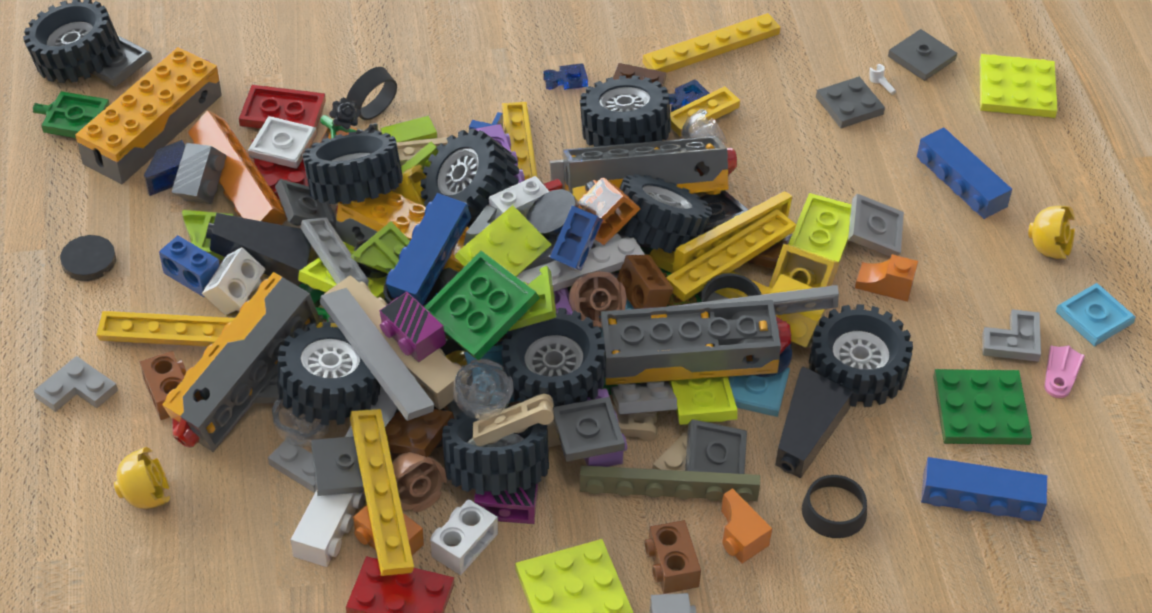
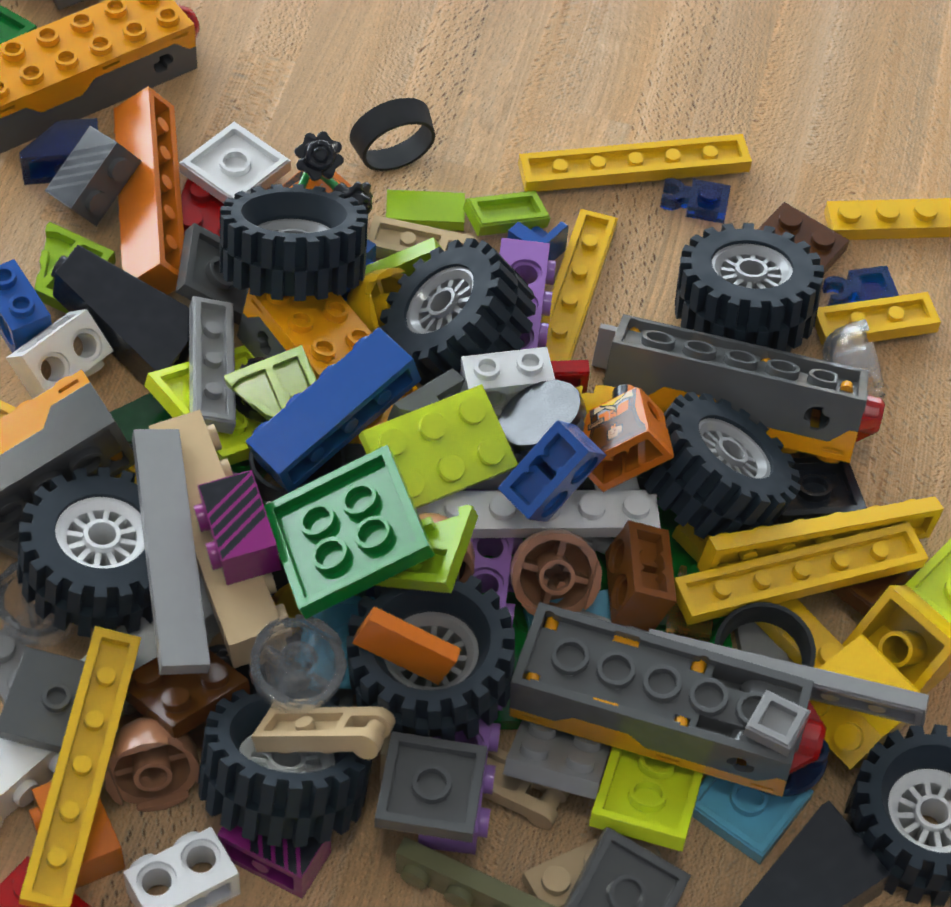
camera: 20 degrees right, 5 degrees up
(281, 103) = (265, 111): red plate -> none
(458, 118) = (500, 212): none -> lime tile
(519, 68) = (634, 162): none -> yellow plate
(543, 354) = (406, 645): none -> orange tile
(763, 327) = (776, 723): none -> light grey tile

